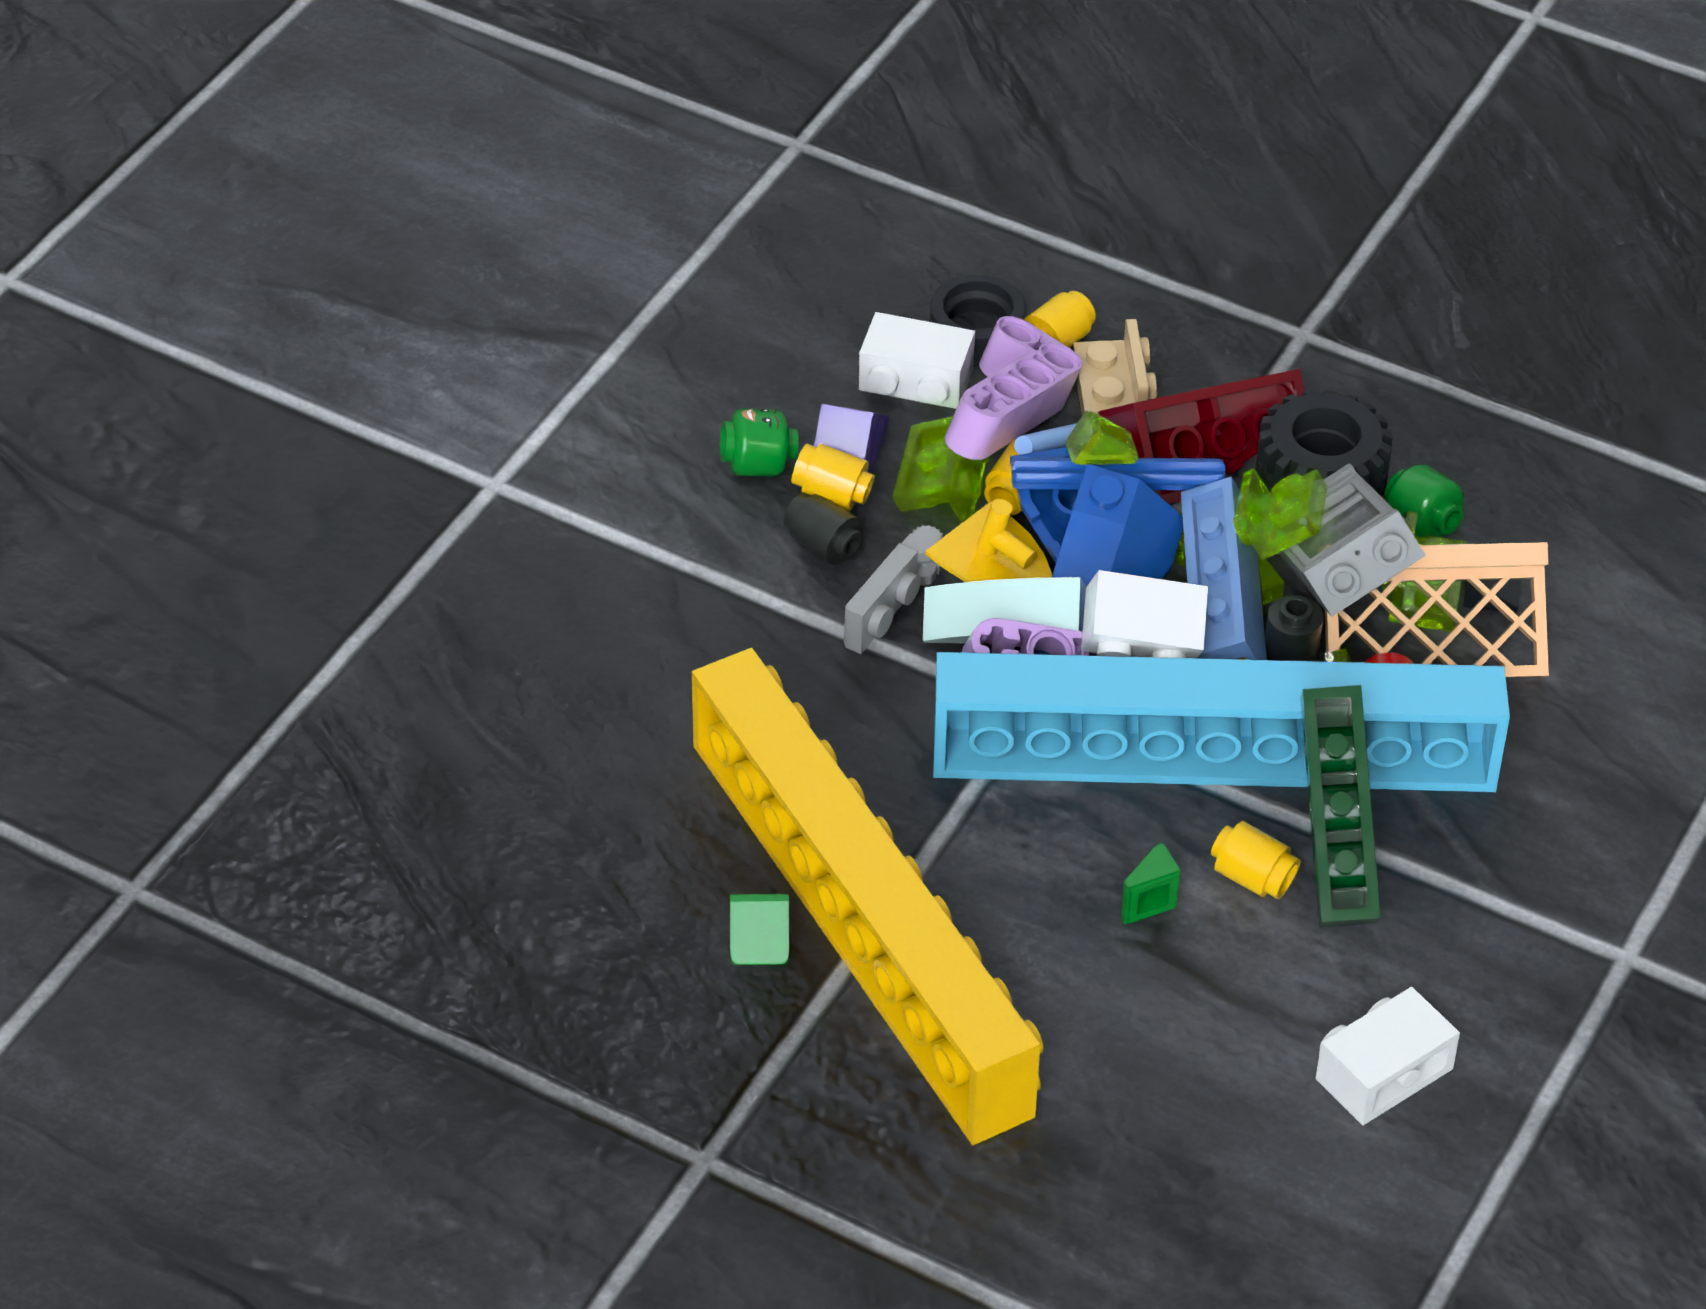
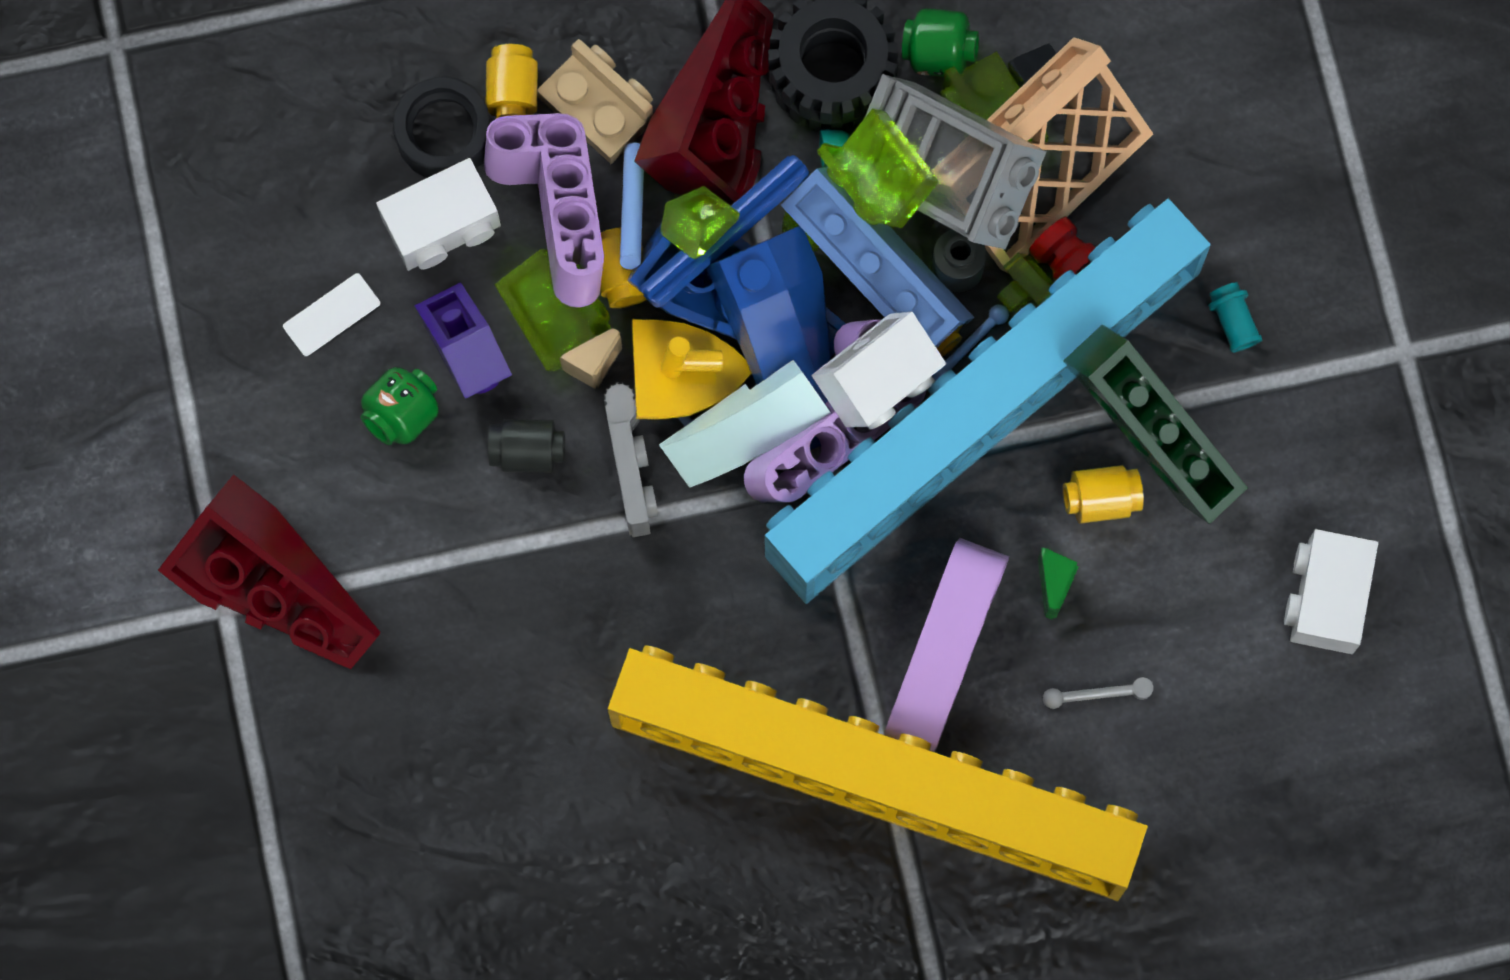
camera: 40 degrees left, 30 degrees up
(543, 463) = (259, 566): none -> dark red wedge
(759, 929) = (824, 859): slope -> none
(773, 377) = (331, 314): none -> white sticker
(833, 475) = (501, 401): yellow brick -> none
(937, 506) = (593, 358): none -> tan slope
(1025, 843) = (947, 642): none -> lavender beam
(1149, 1015) = (1140, 689): none -> light grey hinge
(1498, 817) = (1235, 316): none -> teal pin

